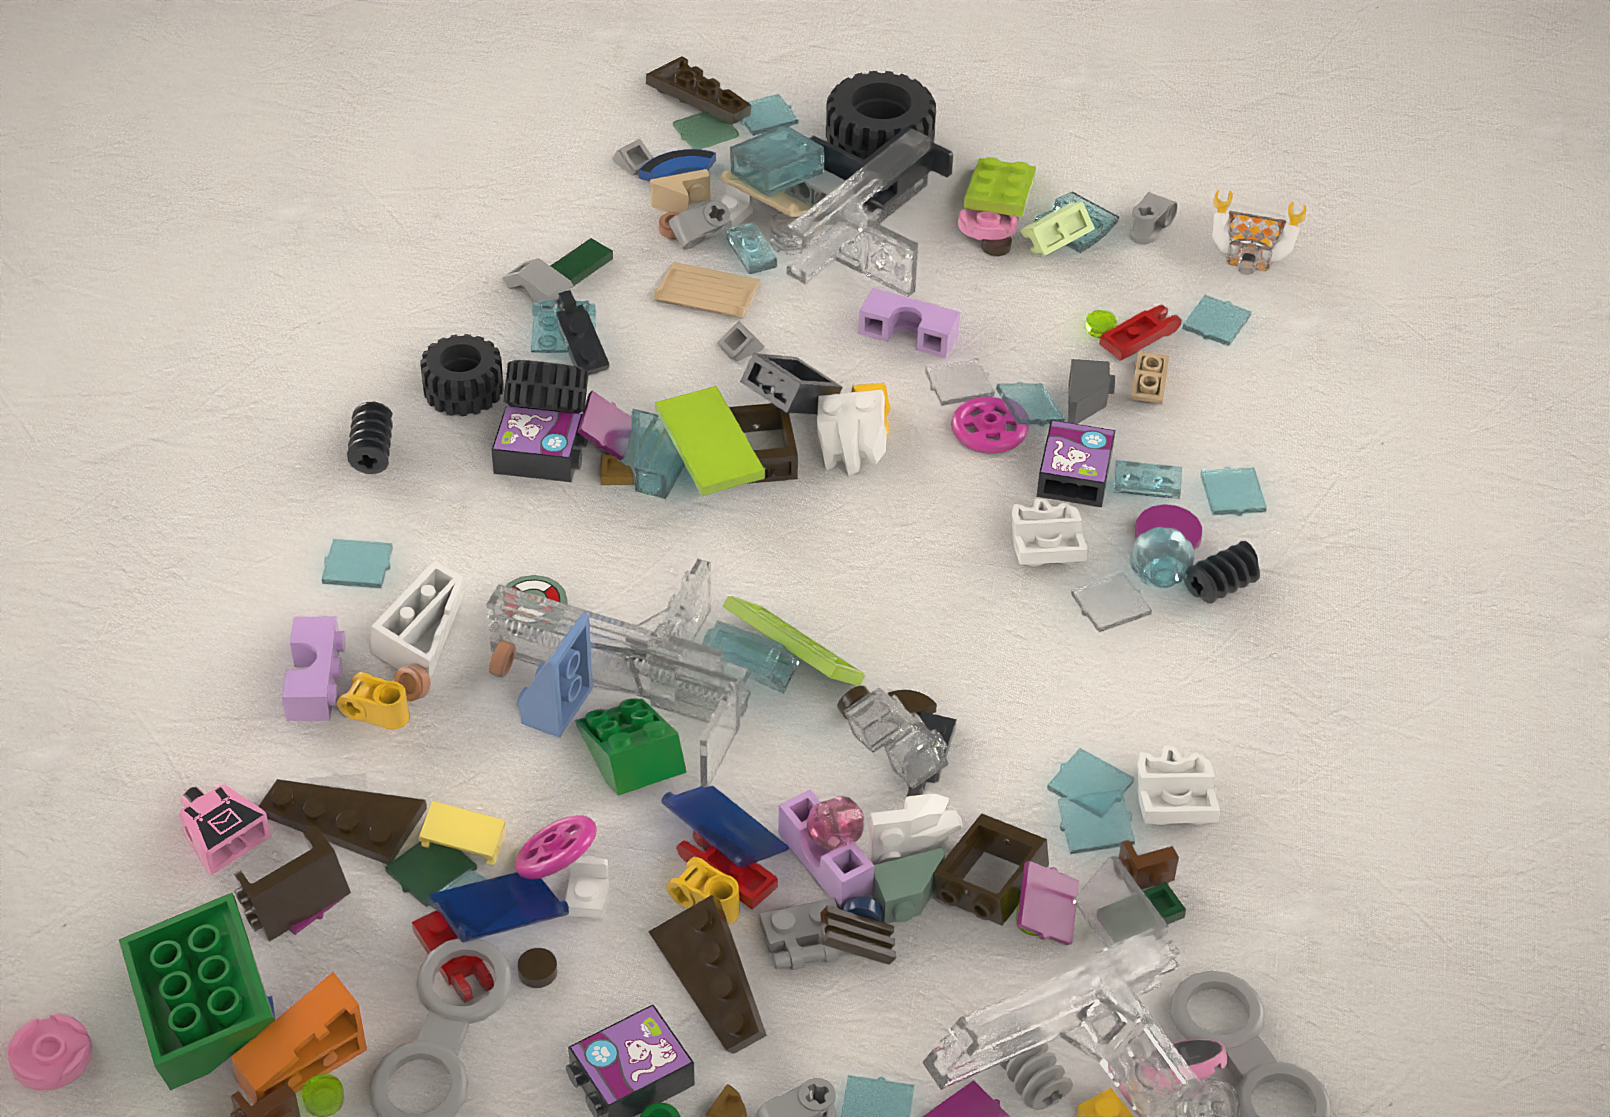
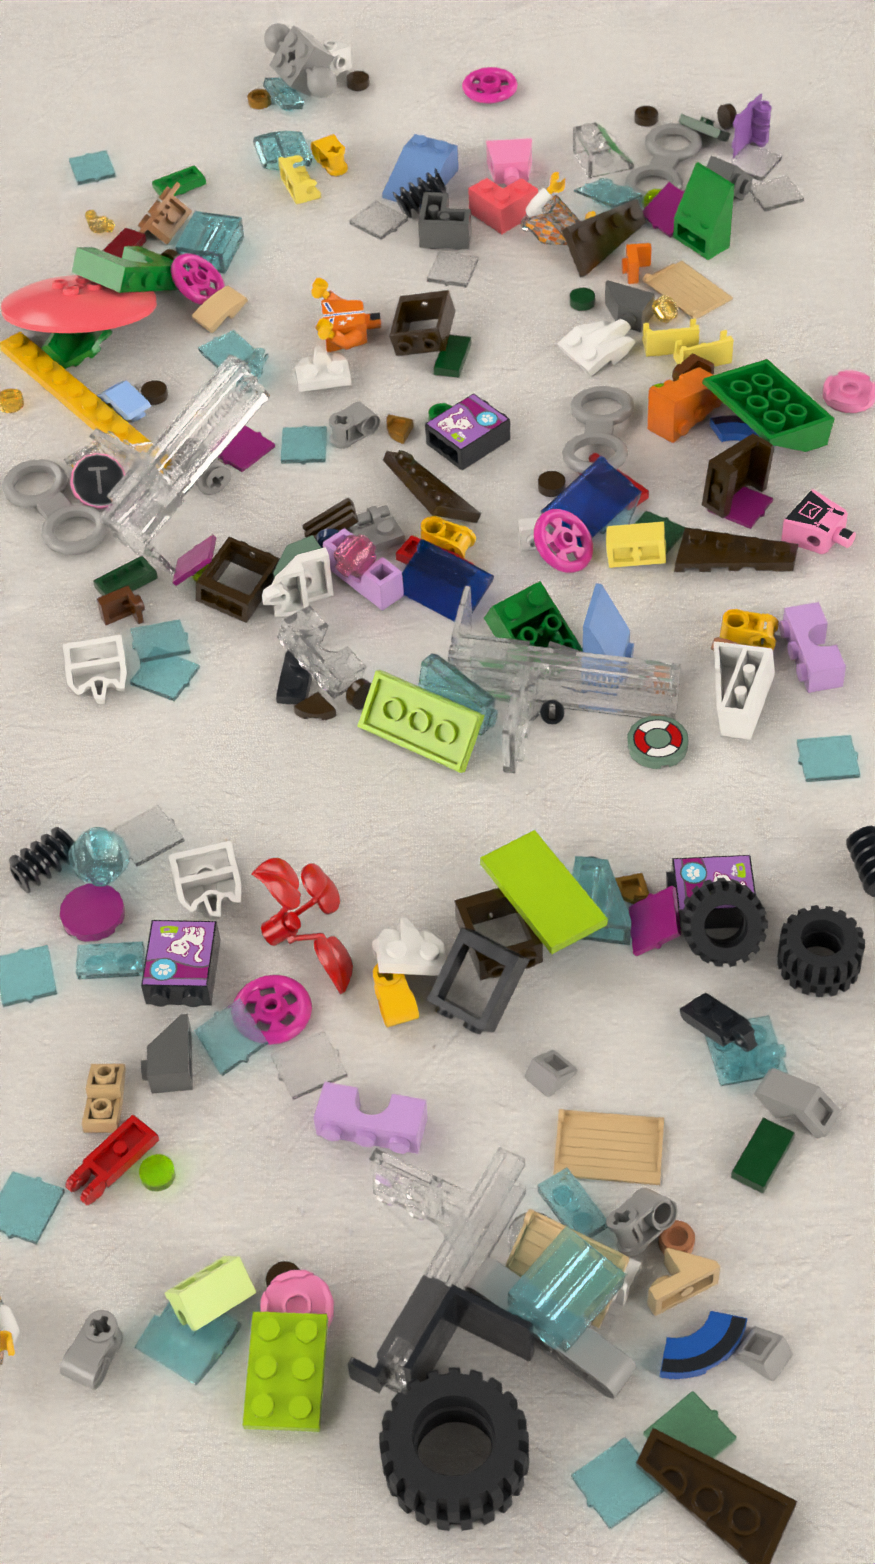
camera: 175 degrees right, 5 degrees up
(970, 471) = (283, 886): none -> red plant

